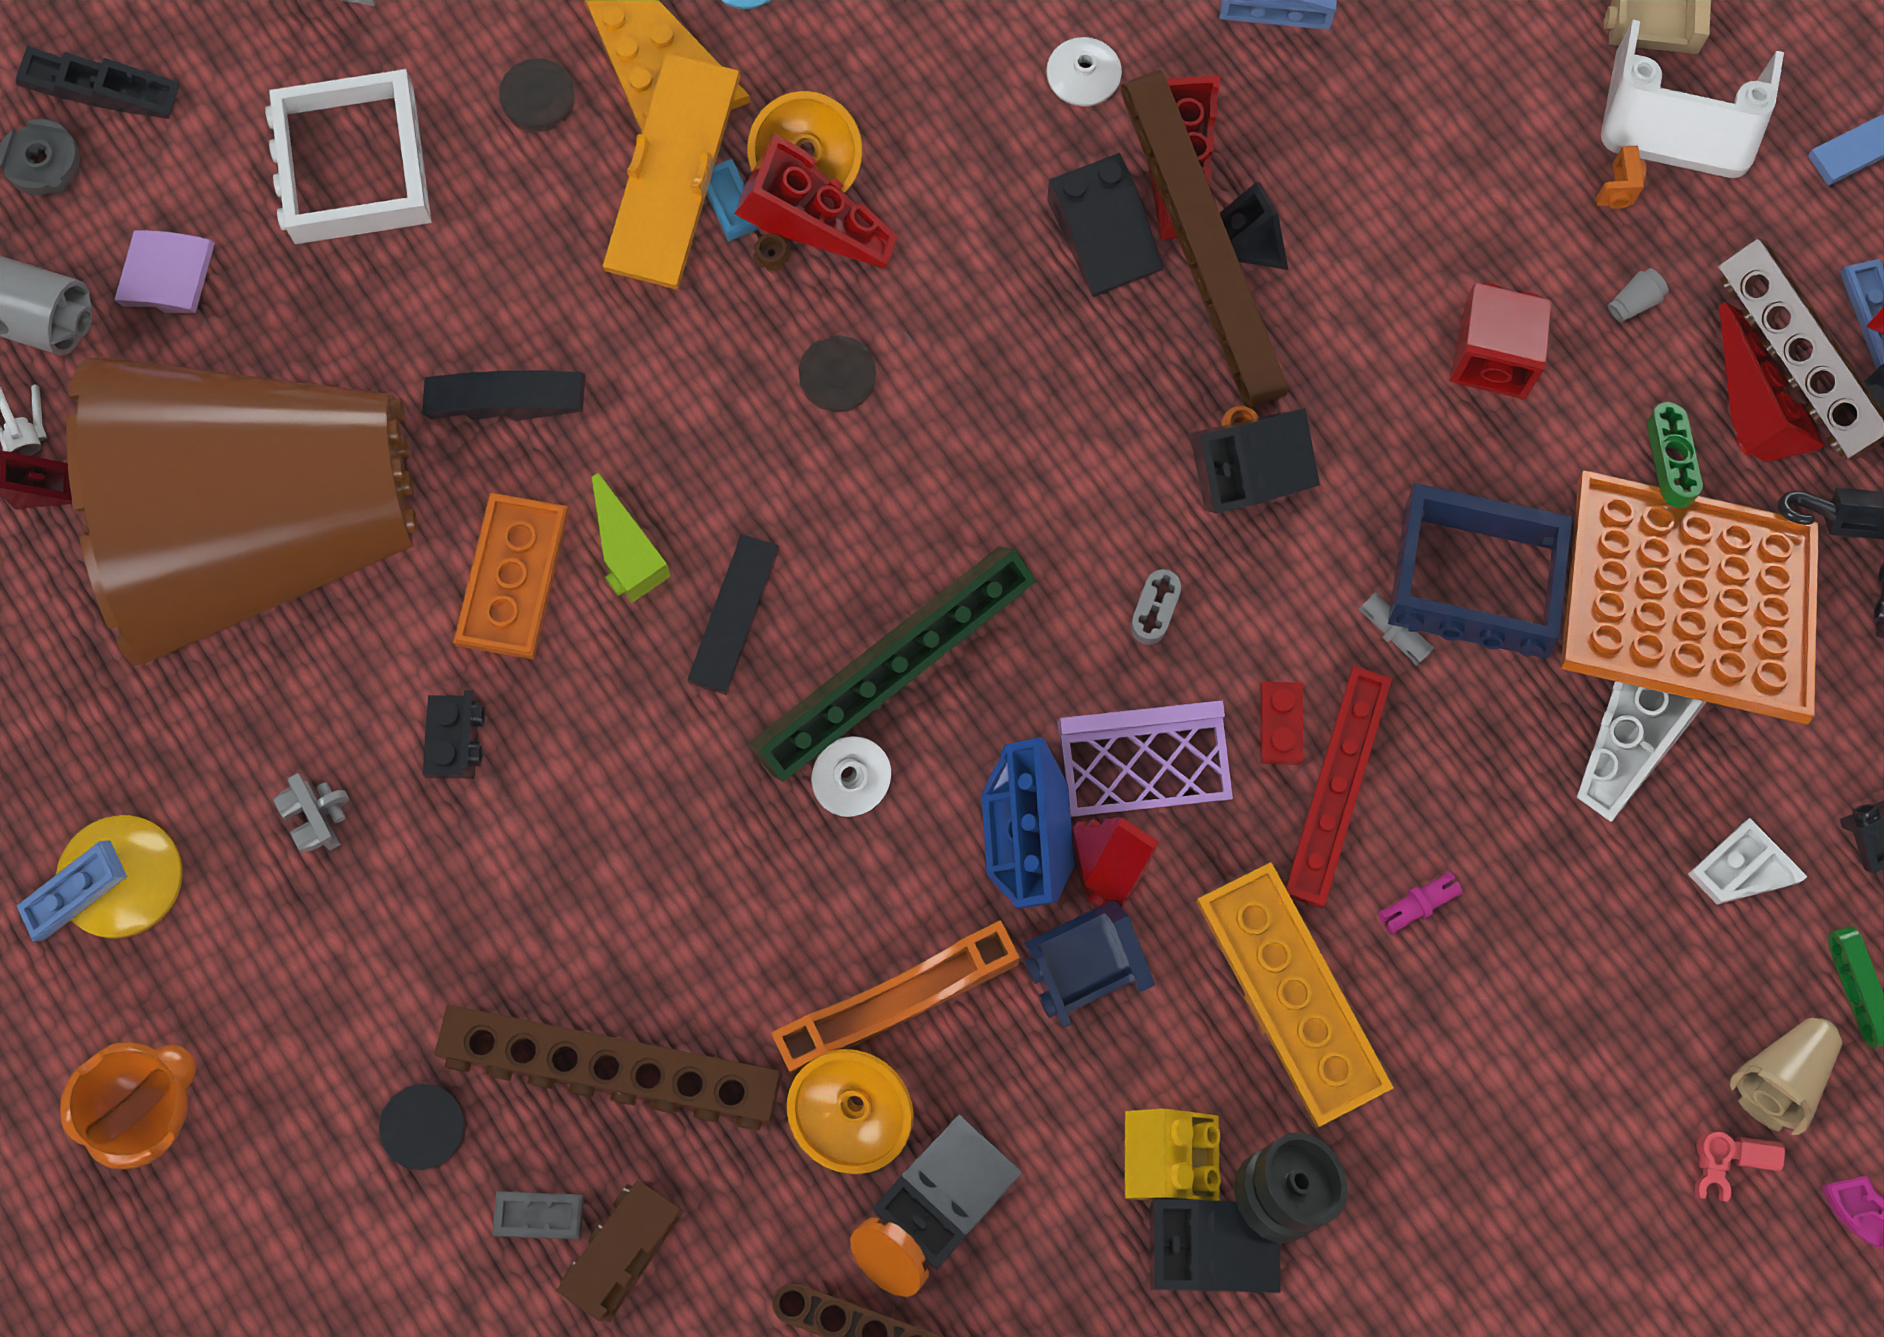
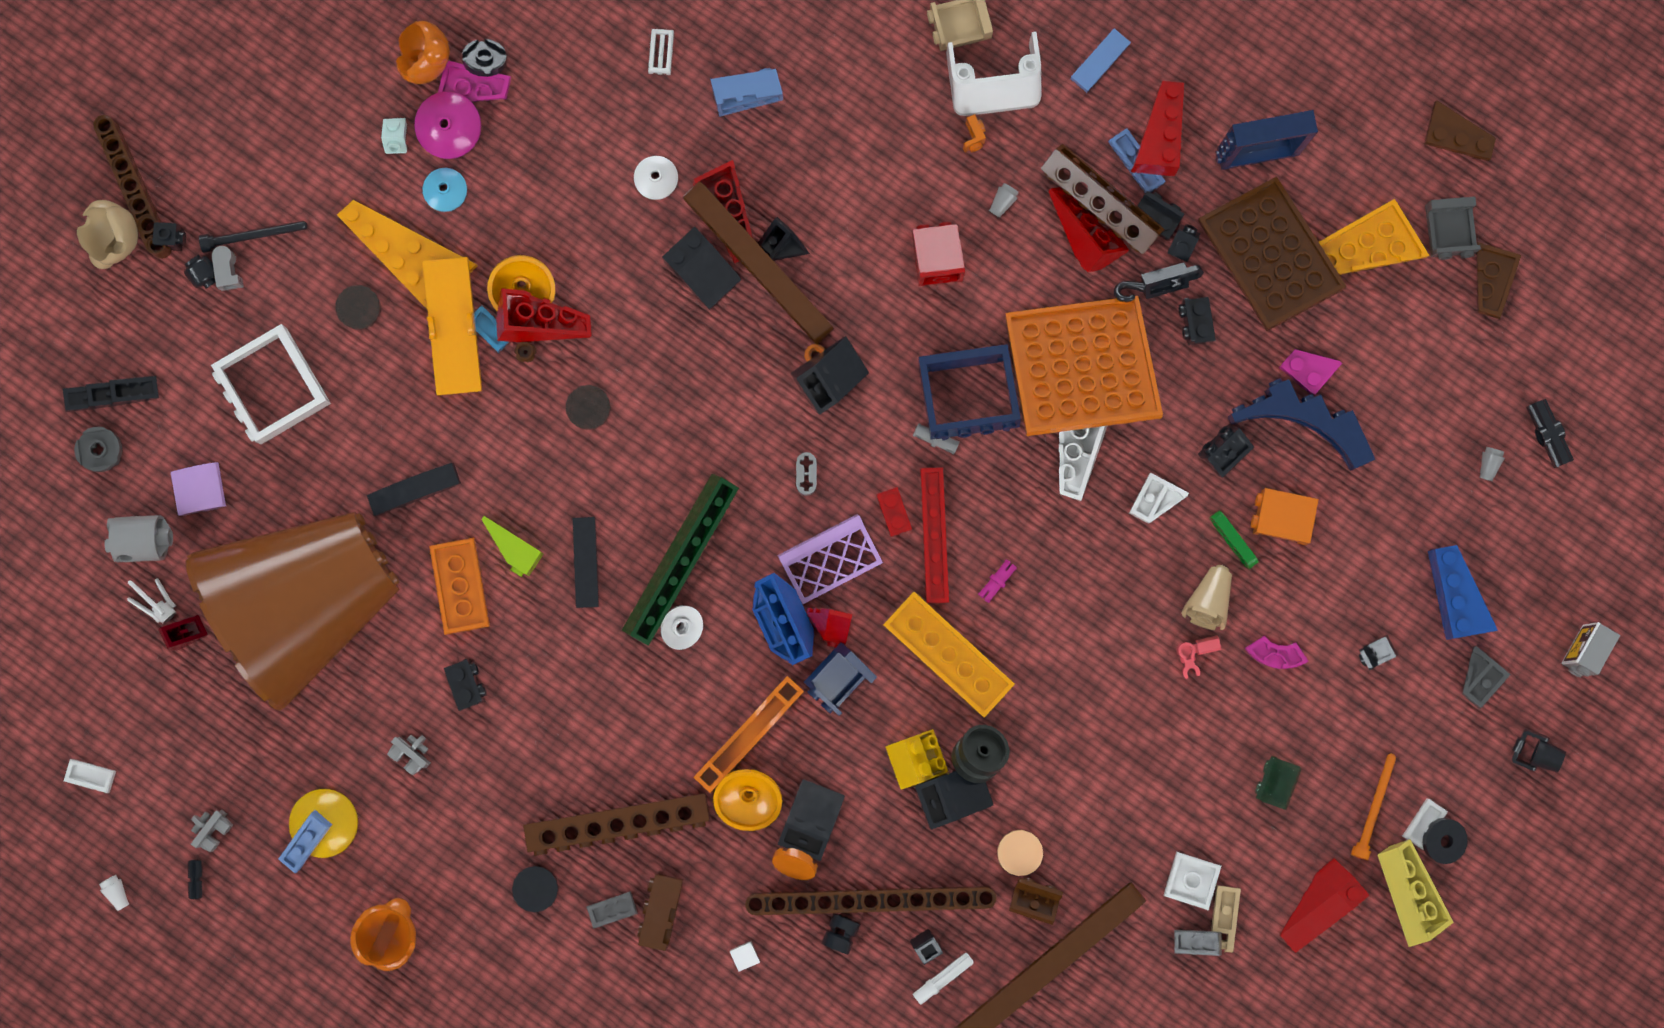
camera: 20 degrees left, 10 degrees up
(1667, 469) = (1051, 276): green beam -> none

